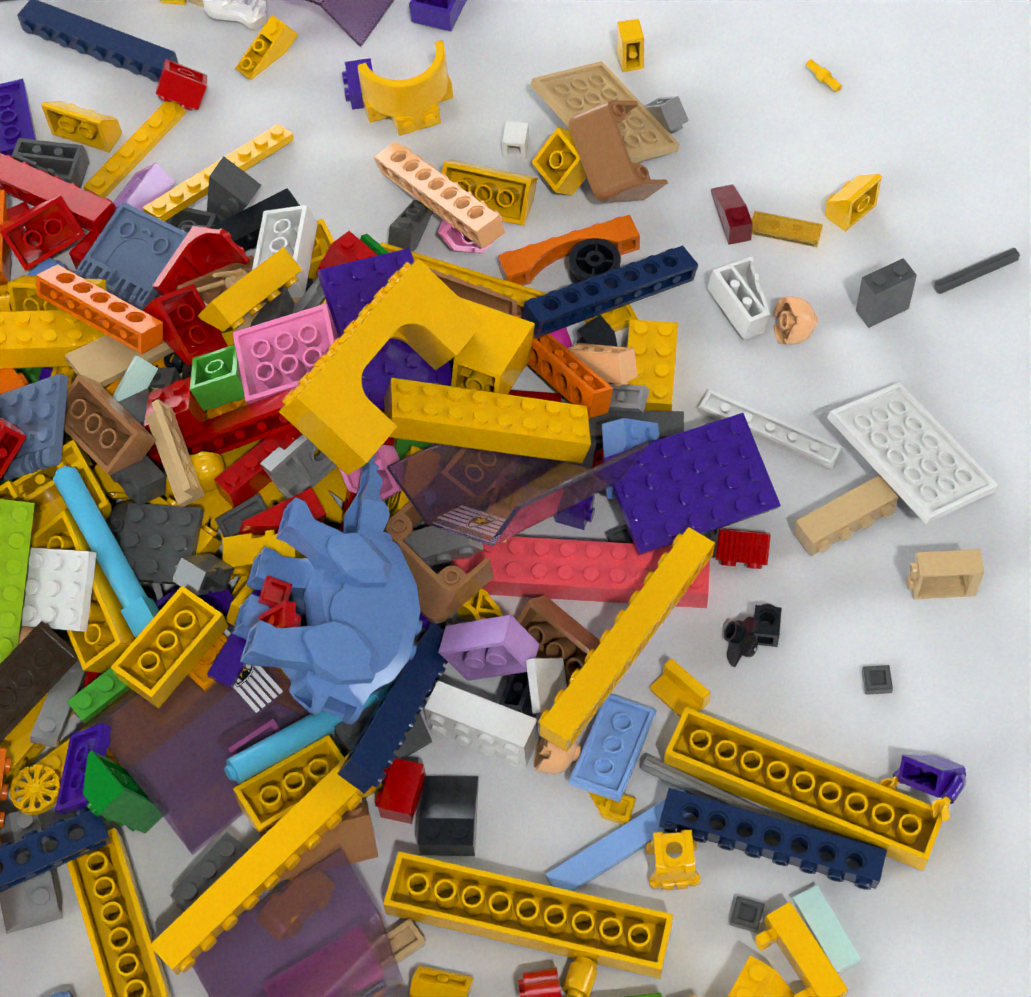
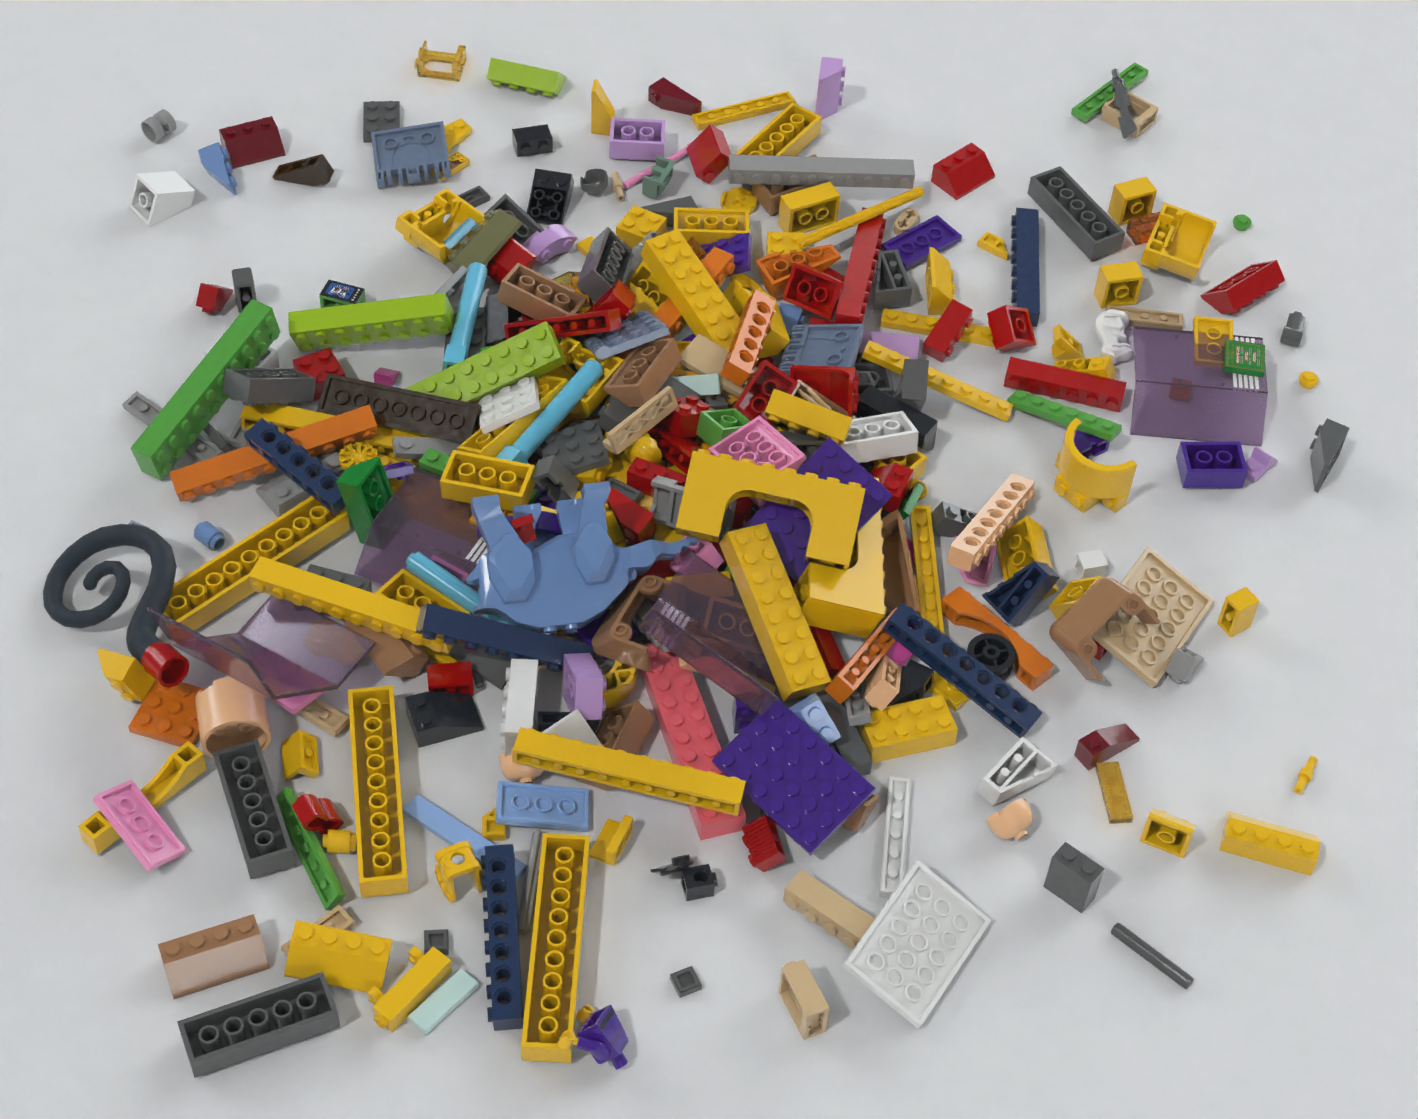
camera: 60 degrees right, 10 degrees down
(48, 58) = (993, 245): none -> yellow tile
(154, 137) = (948, 331): none -> red brick
(224, 52) = (1065, 345): none -> yellow slope
(274, 71) = (1064, 384): none -> red brick
(274, 592) = (549, 518): red tile -> none
(320, 85) = (1064, 415): none -> bright green plate
(535, 204) = (1022, 592): none -> dark blue wedge
(888, 130) = (1270, 843): none -> yellow slope

